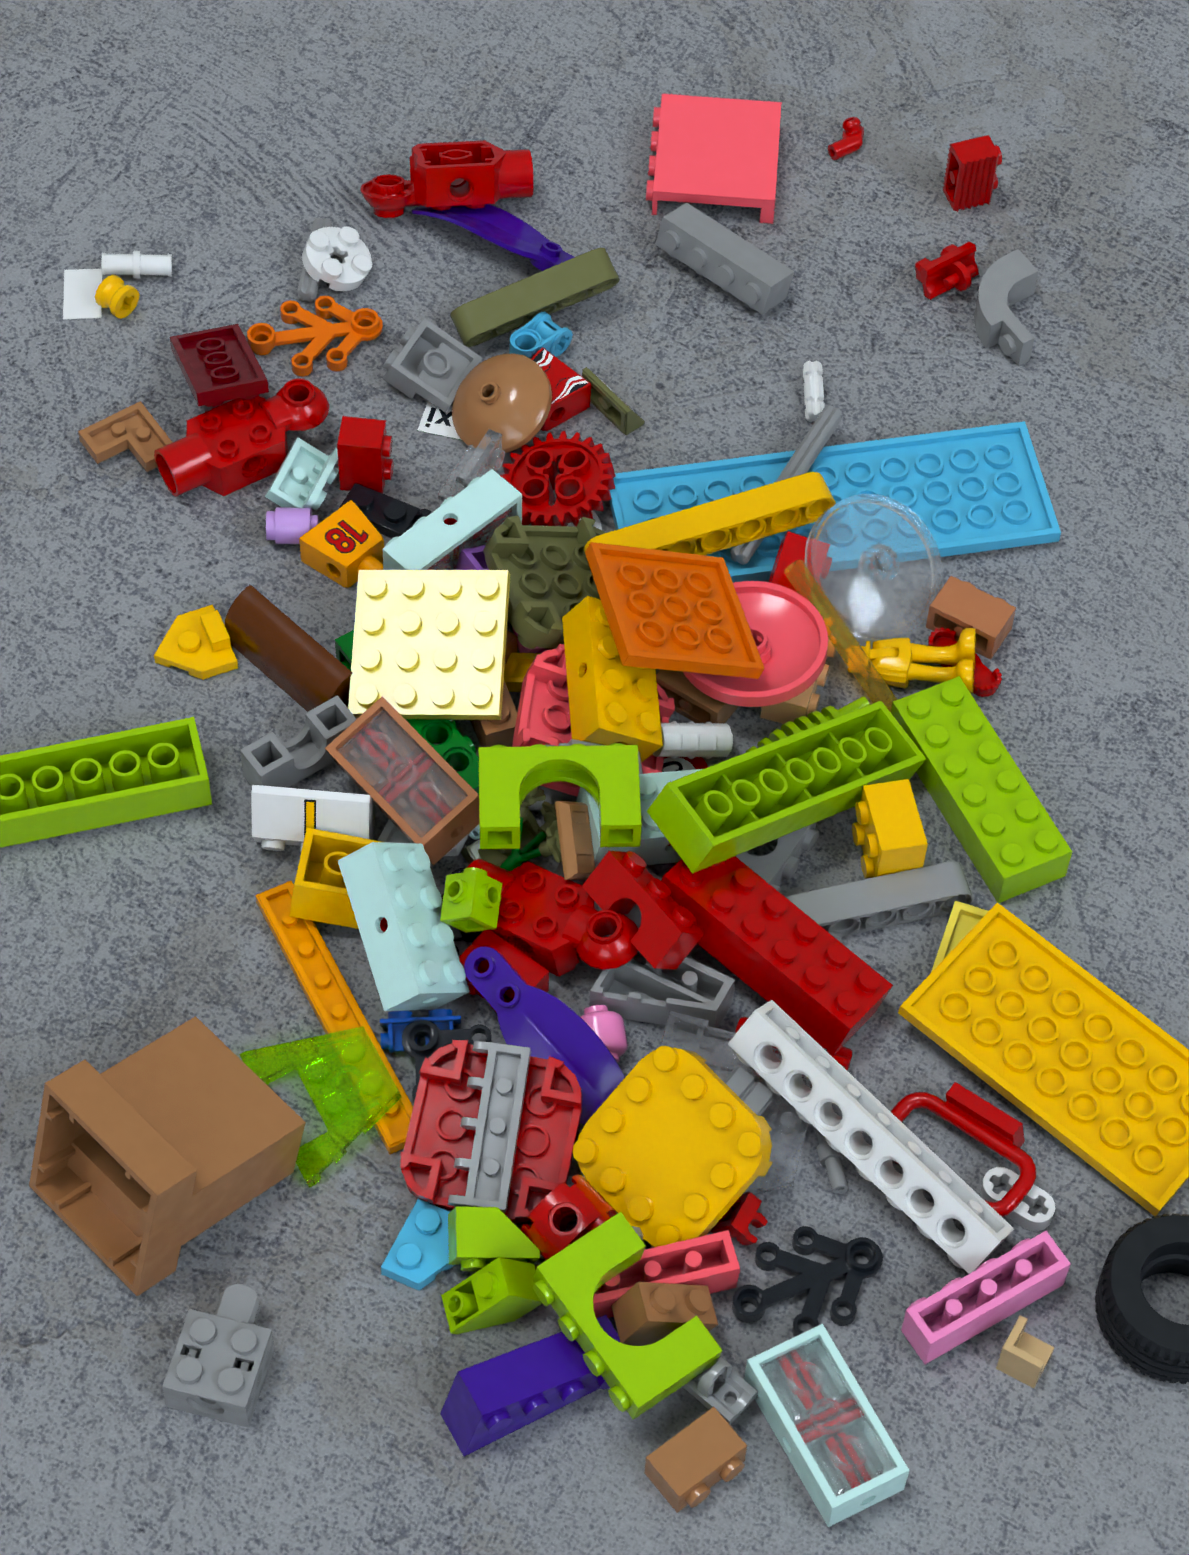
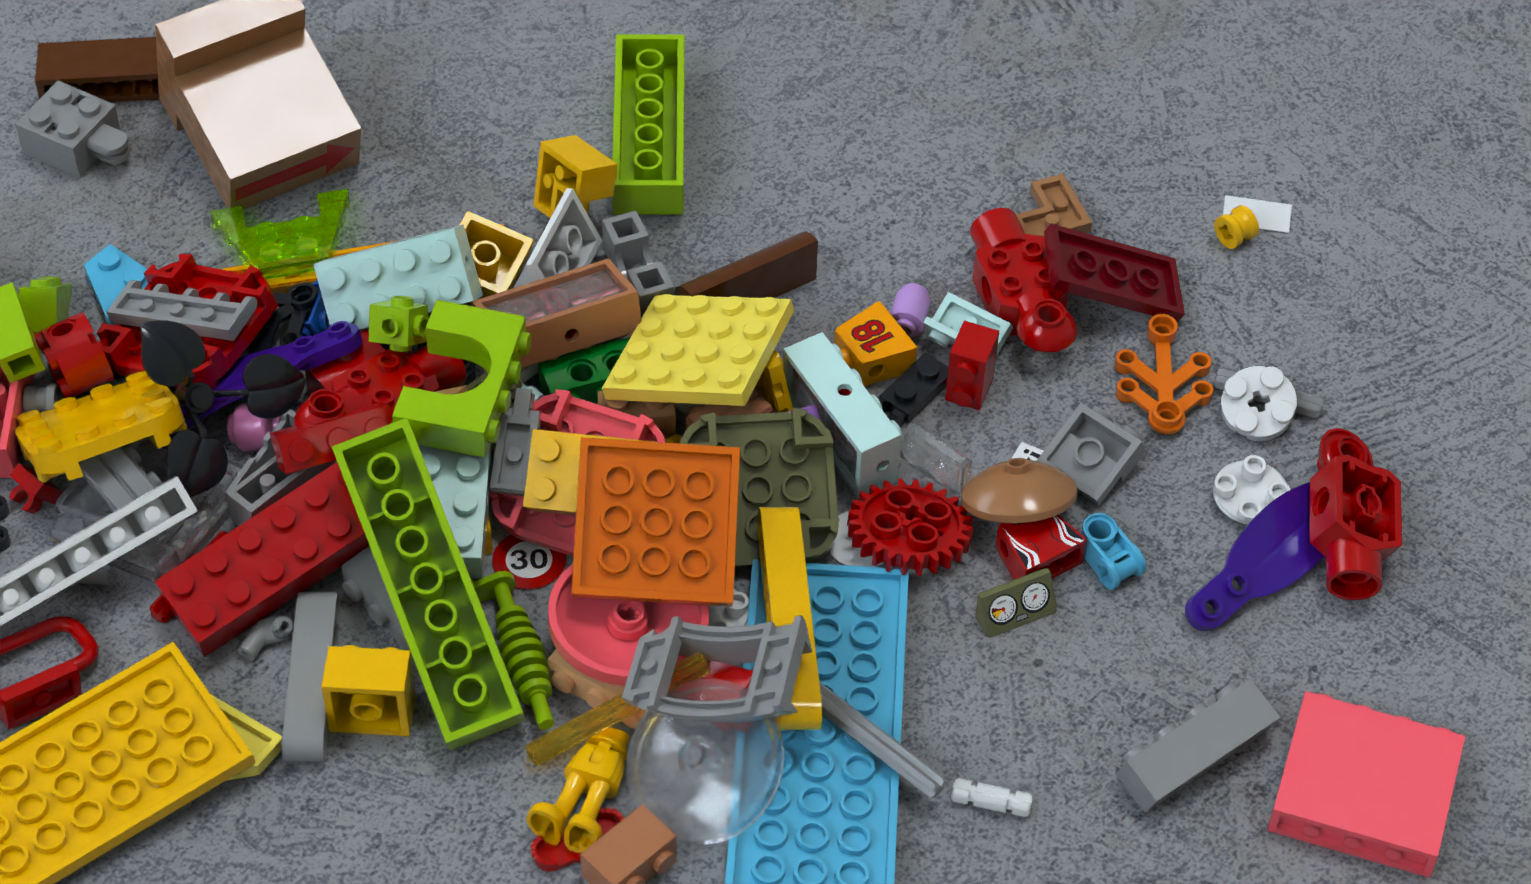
camera: 105 degrees right, 5 degrees down
(107, 1362) = (104, 68): none -> reddish brown brick
(136, 264) = (1280, 250): white pin -> none
(198, 644) = (790, 218): yellow plate -> none
(203, 811) = (575, 165): none -> yellow brick
(435, 258) = (1247, 488): none -> white dish
(483, 1235) = (92, 292): lime slope -> none
(544, 291) = (1163, 553): olive beam -> none
(616, 1060) = (169, 356): none -> black plant
(695, 740) = (547, 558): white axle -> none
(809, 487) = (771, 648): none -> light grey wedge
(982, 791) = (405, 796): lime brick -> none

